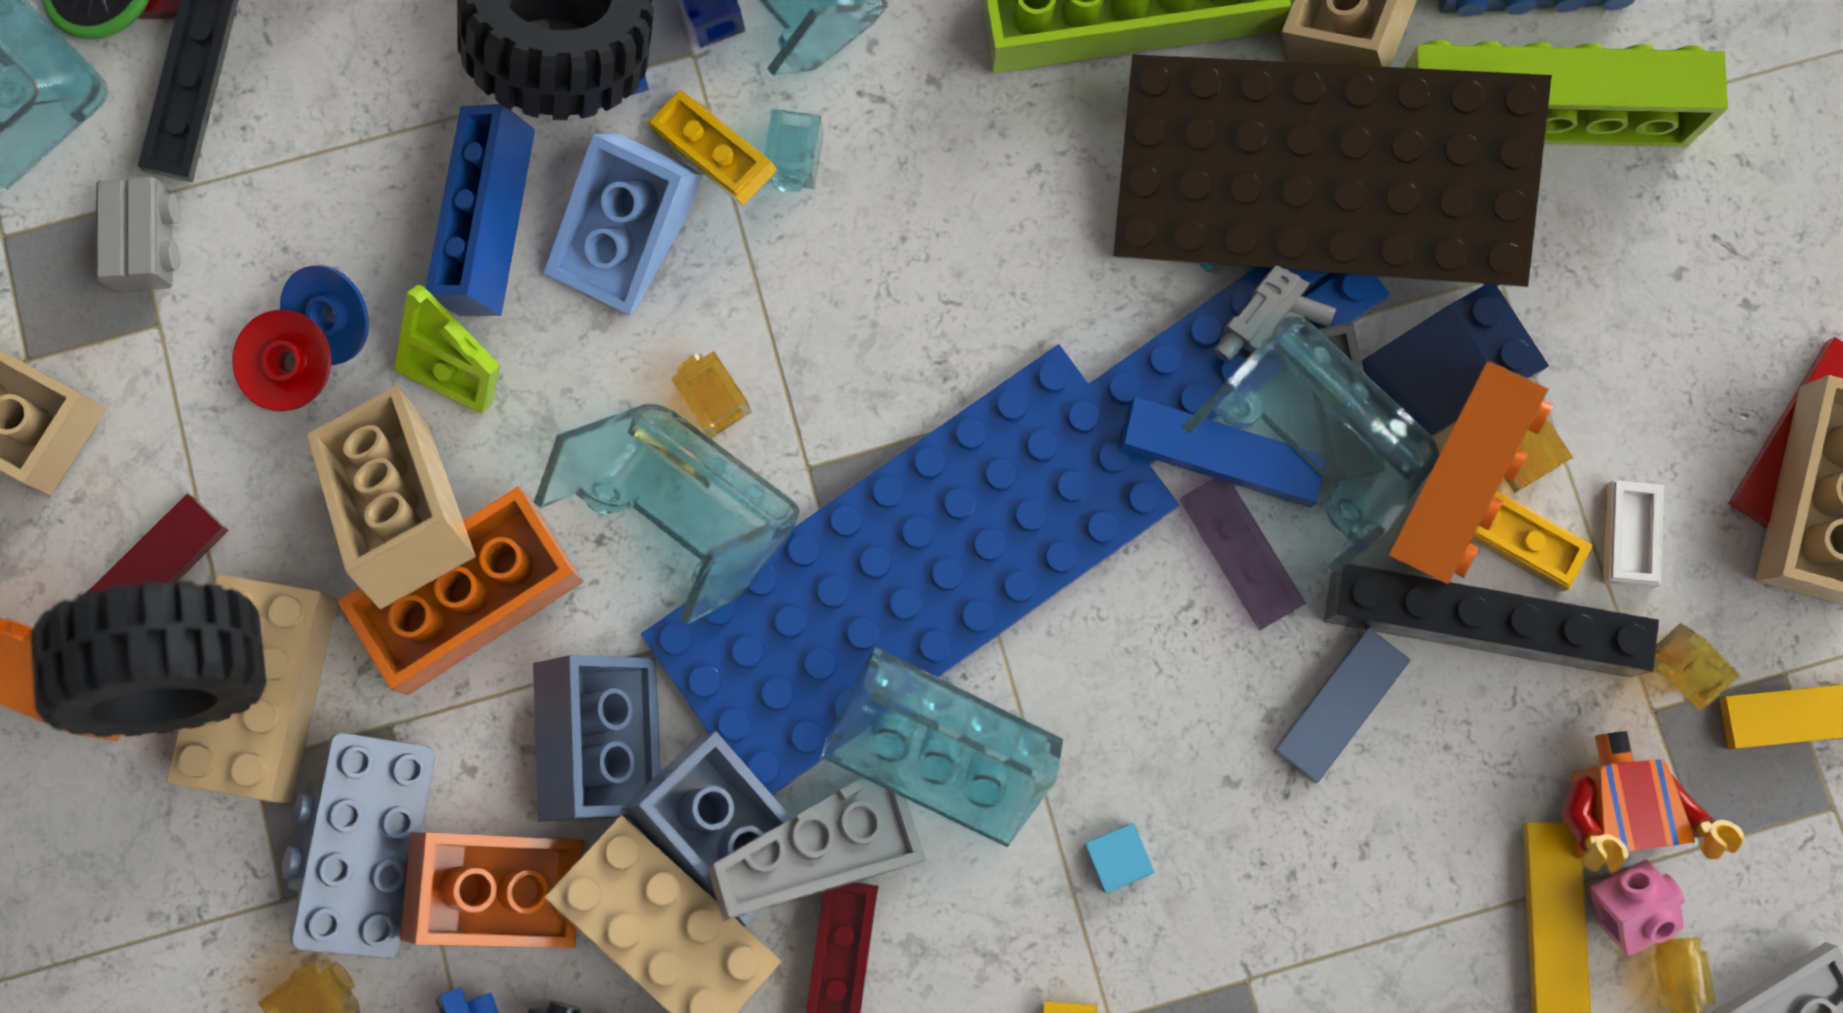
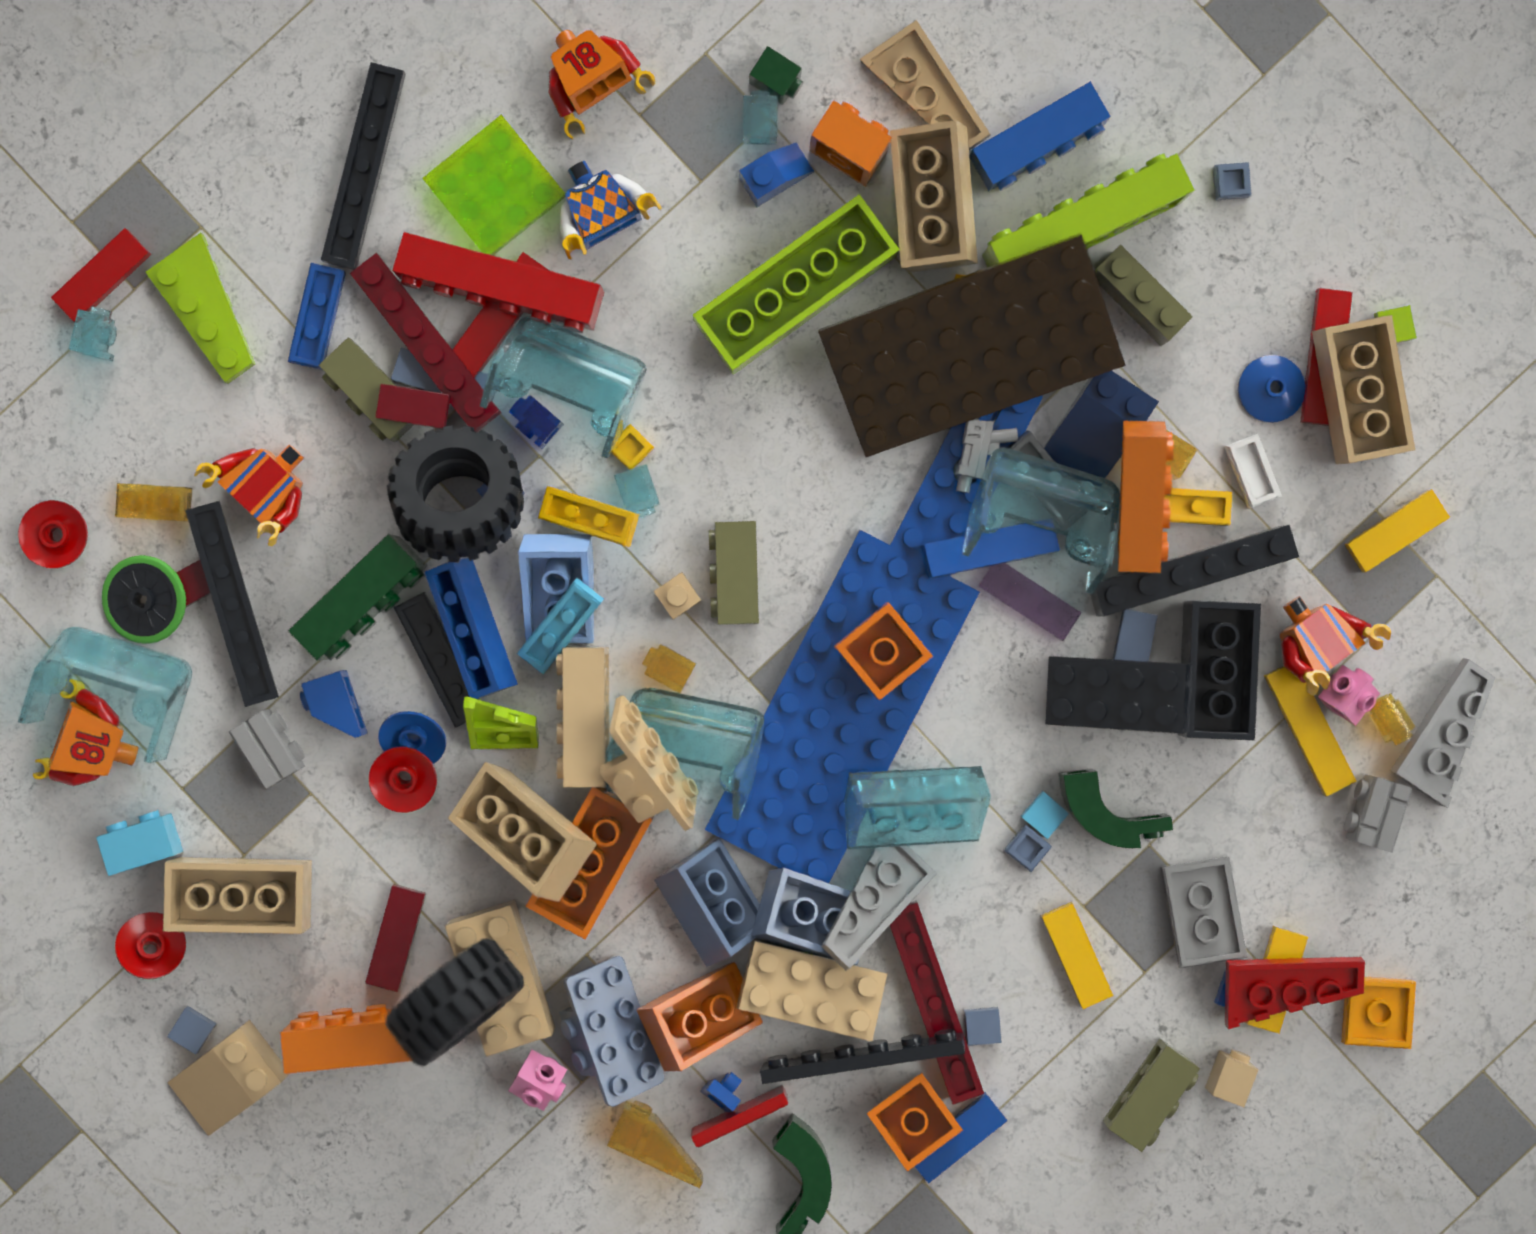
camera: 30 degrees left, 10 degrees up
(220, 860) = (539, 1081): none -> bright pink brick
(256, 218) = (334, 703): none -> blue slope
(356, 98) = (358, 598): none -> dark green brick
(419, 202) = (435, 653): none -> black tile
(565, 385) = (584, 715): none -> tan brick
(597, 264) = (560, 626): none -> medium azure tile
(597, 498) = (646, 774): none -> tan bracket
(771, 305) = (677, 595): none -> tan brick
(815, 94) = (631, 448): none -> yellow tile
(863, 315) = (734, 572): none -> olive brick
(1007, 504) = (883, 651): none -> orange brick
(1072, 893) = (1027, 848): none -> sand blue tile
(1186, 891) = (1084, 803): none -> dark green arch
(1309, 732) = (1119, 694): none -> black brick
(1466, 775) = (1224, 652): none -> black brick
(1587, 228) = (1141, 296): none -> olive brick
(1690, 451) = (1256, 393): none -> blue dish
(1692, 667) = (1320, 540): clear yellow brick -> none
(1772, 149) = (1232, 181): none -> sand blue tile

